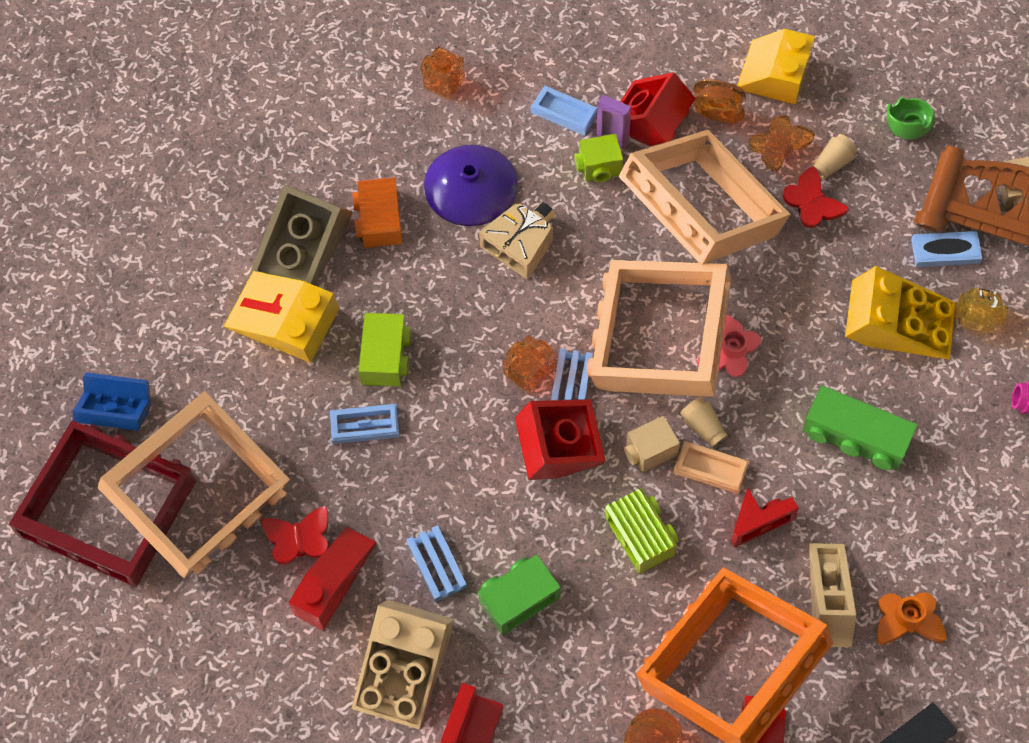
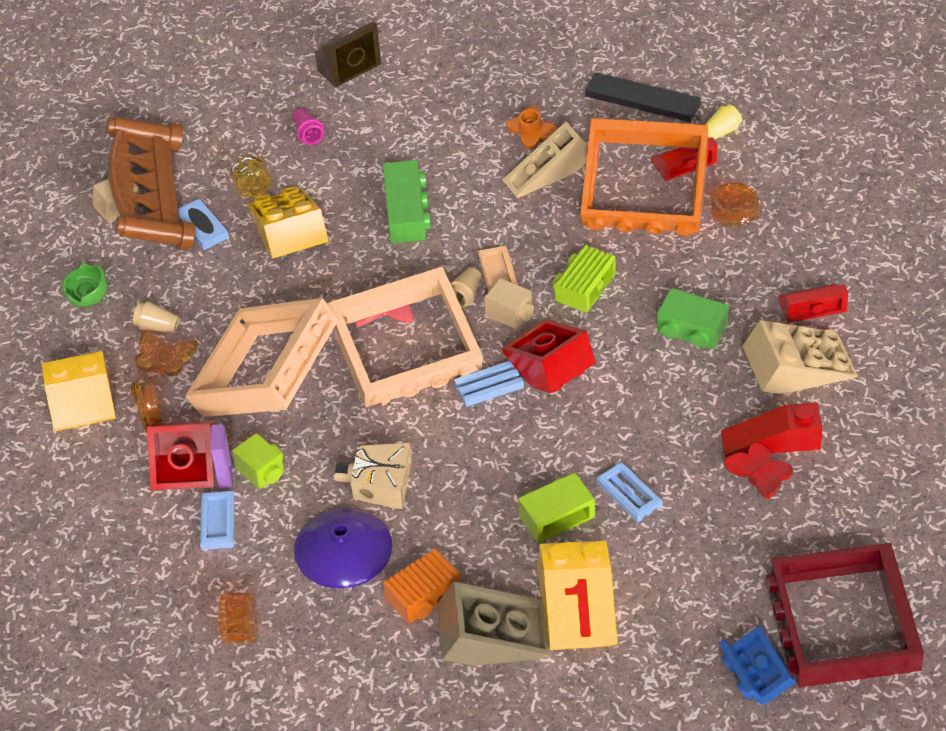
camera: 120 degrees left, 15 degrees down
(237, 440) = (782, 569): light nougat window -> none
(425, 539) = (719, 367): light blue tile -> none
(528, 362) = (495, 408): clear orange brick -> none
(755, 522) = (522, 222): red slope -> none
(810, 201) = (213, 310): red animal -> none

